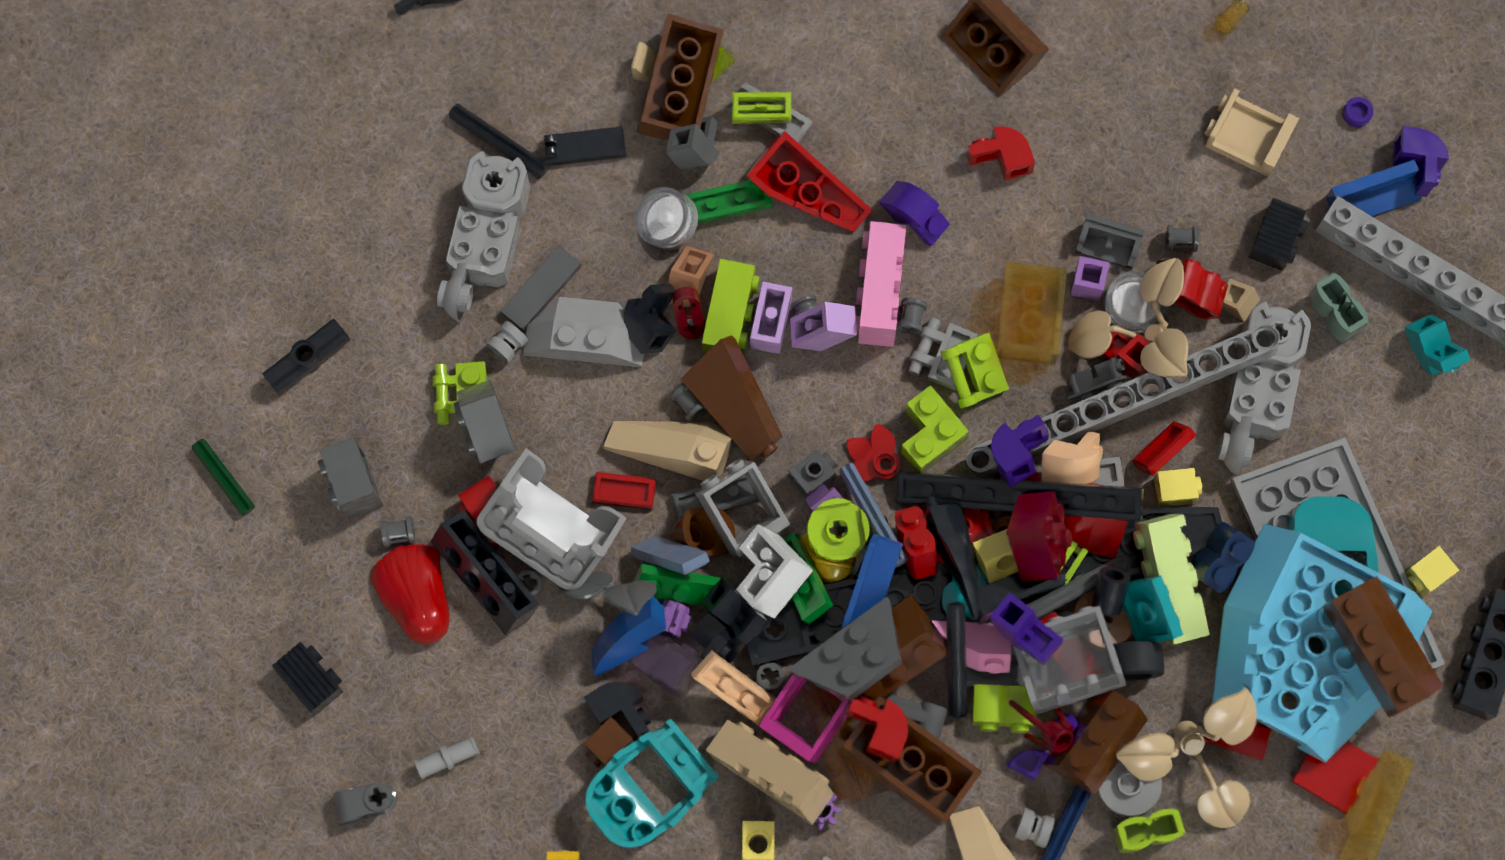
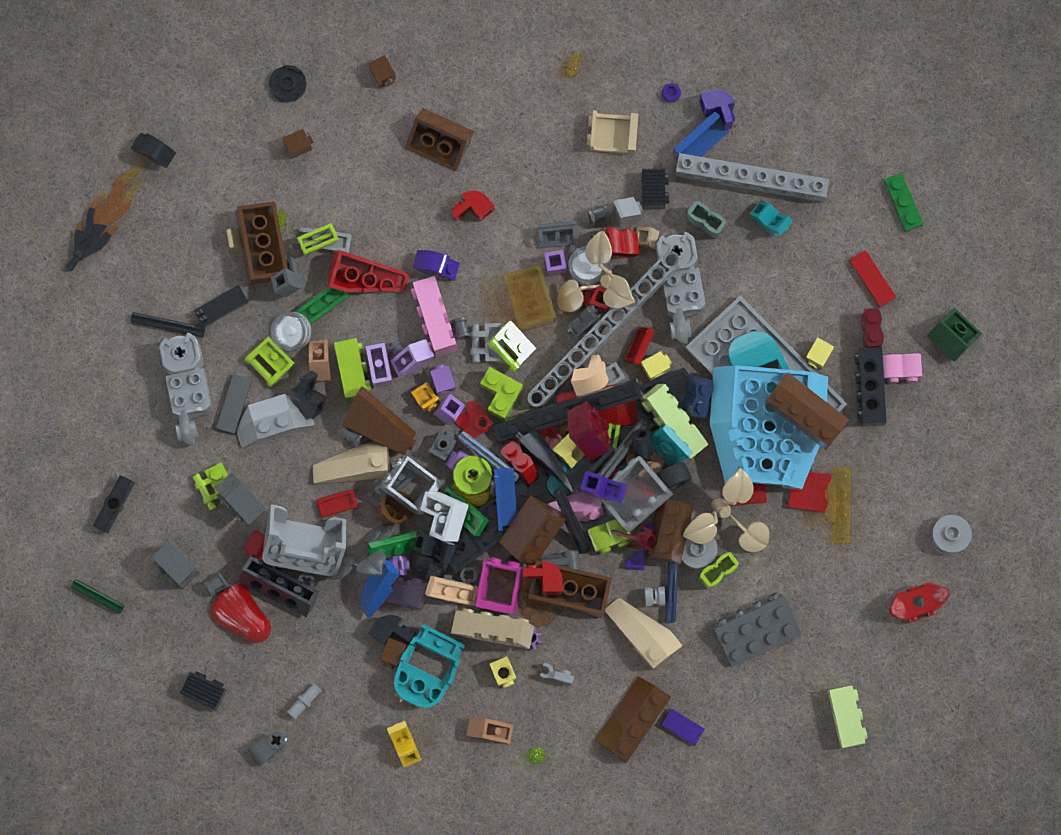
camera: 25 degrees left, 5 degrees up
(507, 341) = (232, 442): light grey wheel -> none
(626, 246) = (274, 357): none -> lime plate
(670, 555) = (382, 530): sand blue tile -> none
(693, 312) = (327, 384): dark red beam -> none
(818, 393) = (425, 398): none -> light orange bracket
(844, 422) = (449, 409): none -> medium lavender brick
(854, 377) = (442, 379): none -> medium lavender brick
(854, 655) = (513, 543): dark grey wing -> none
(1012, 449) = (552, 386): dark purple brick -> none
(1225, 247) = (627, 210): none -> light grey slope

